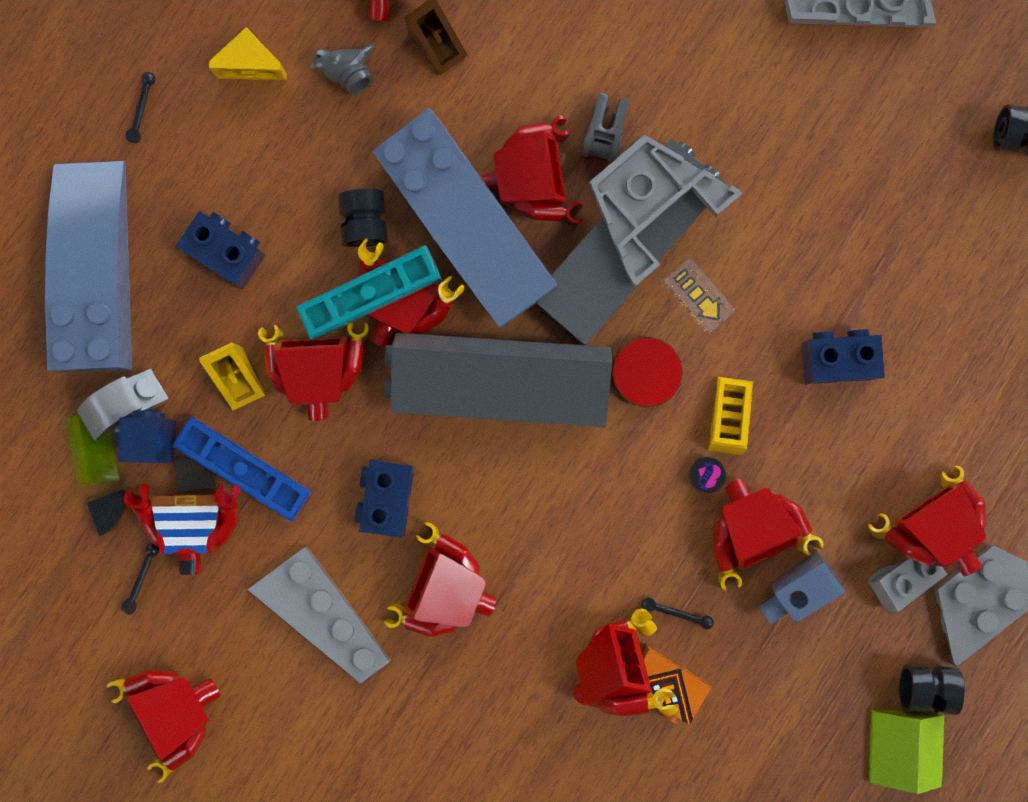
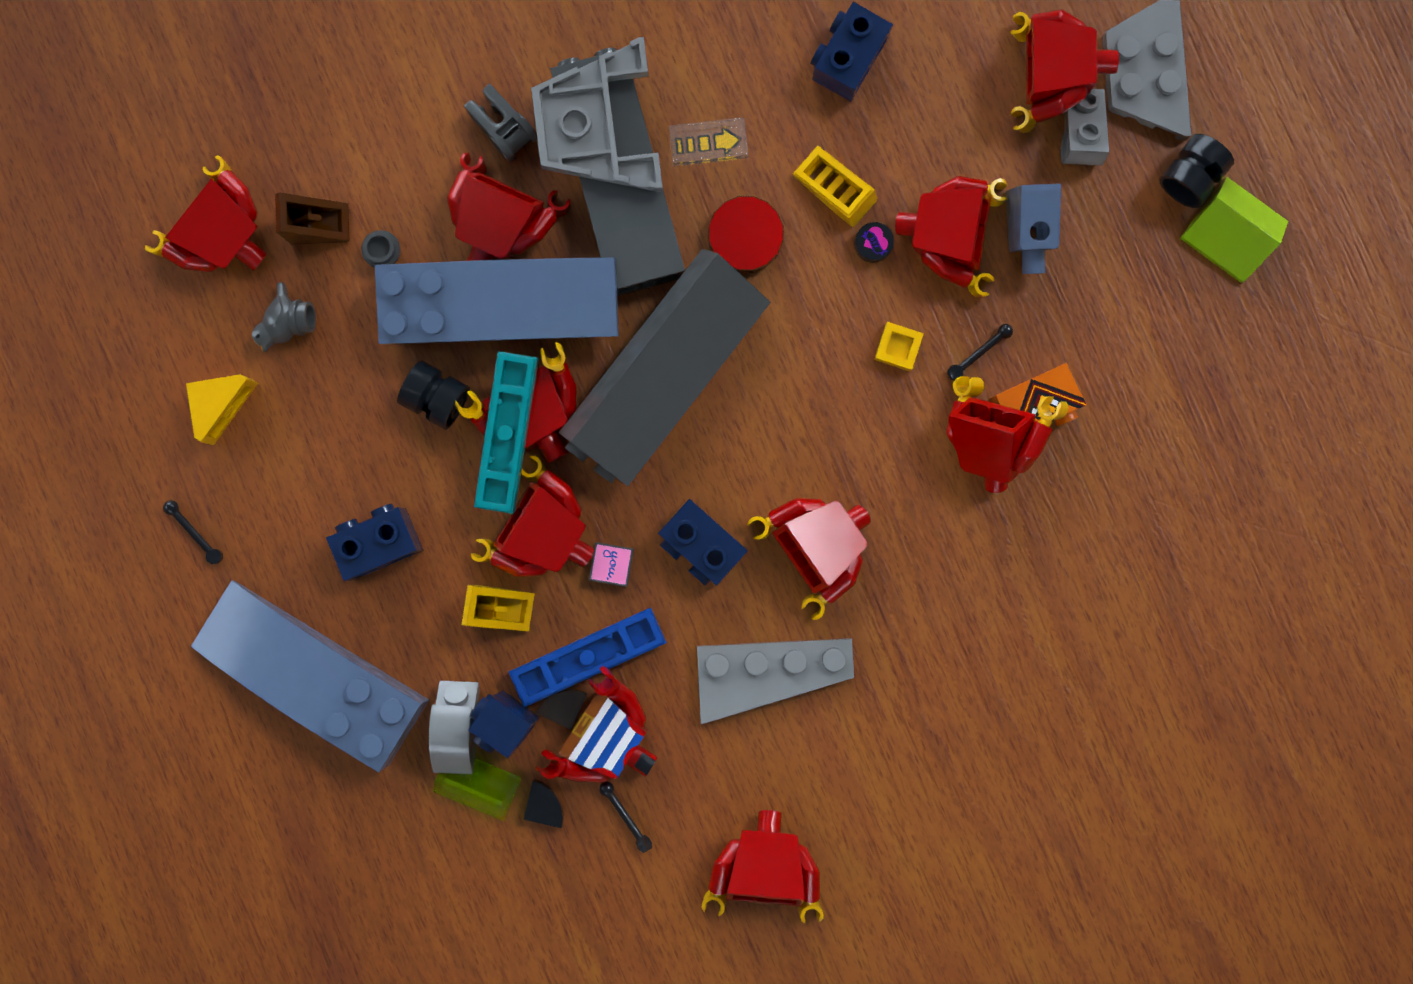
camera: 50 degrees left, 0 degrees up
(325, 439) = (611, 564): none -> bright pink tile
(448, 103) = (381, 248): none -> dark grey plate
(639, 547) = (898, 346): none -> yellow tile

